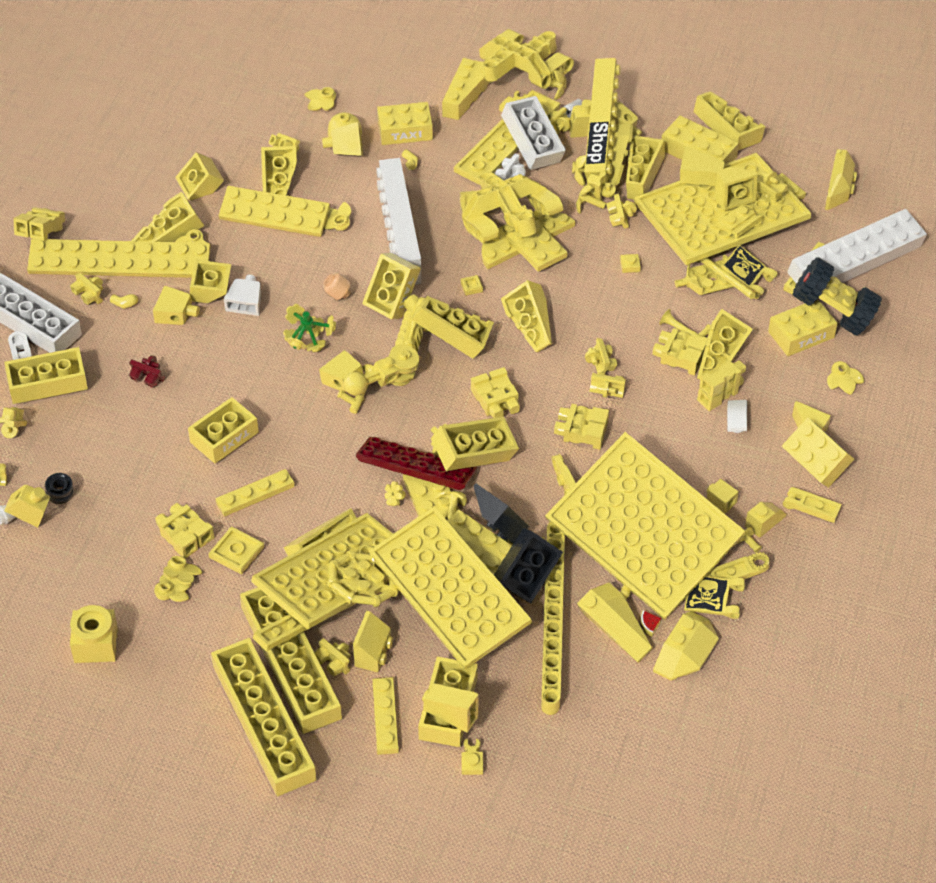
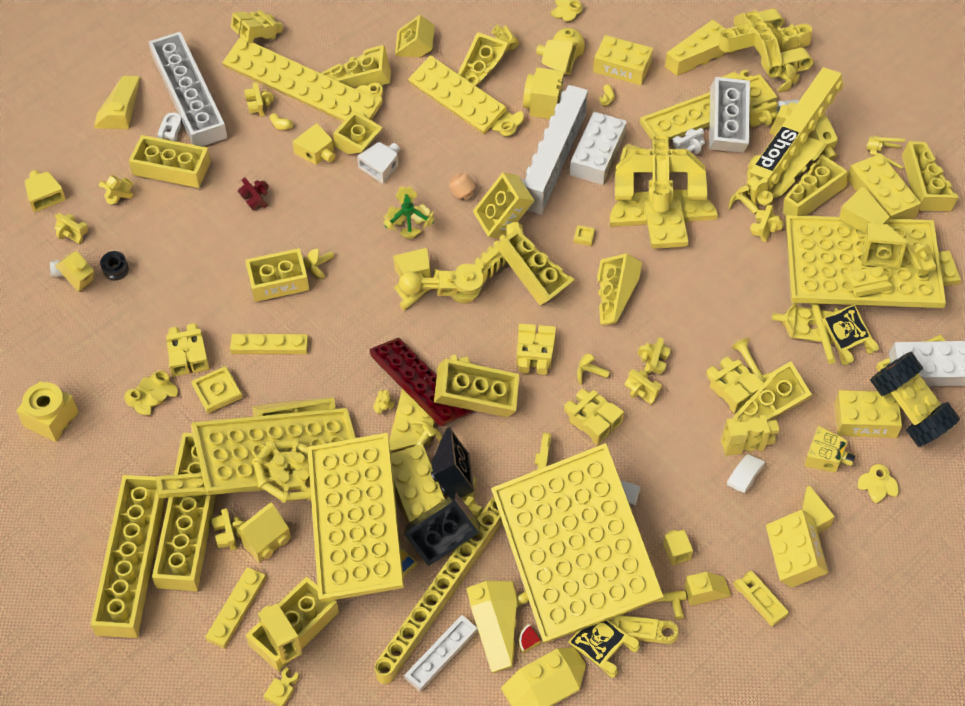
camera: 30 degrees right, 5 degrees up
(248, 401) = (314, 260): none -> light yellow plant
(356, 178) = (543, 92): none -> light yellow piece
(435, 206) = (598, 148): none -> white brick
(548, 387) = (584, 365): none -> light yellow plant
(587, 666) = (441, 653): none -> white plate
(630, 263) = (744, 277): light yellow plate -> none
(667, 109) = (876, 143): none -> light yellow plant
(790, 370) = (828, 451): none -> light yellow torso

